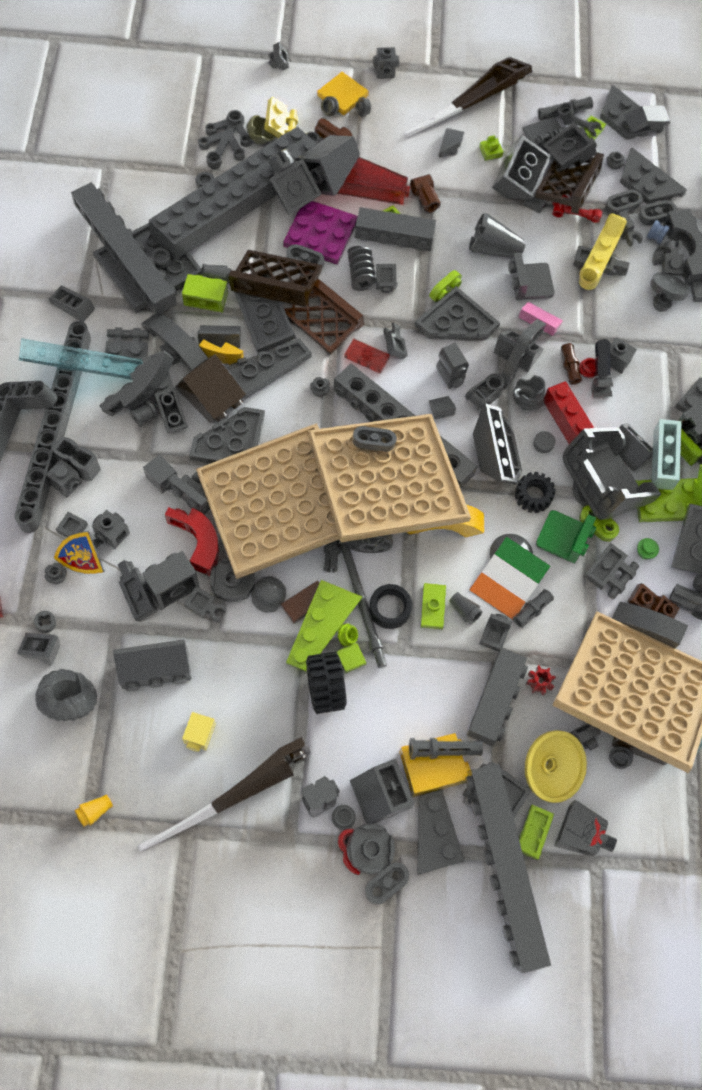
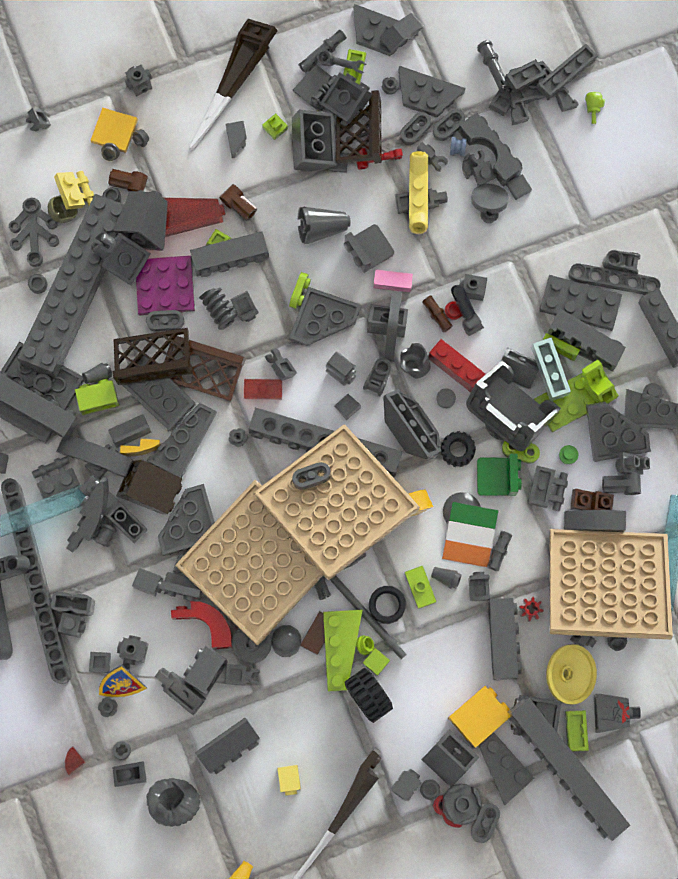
camera: 20 degrees left, 10 degrees up
(434, 748) = (474, 707): dark grey pin -> none

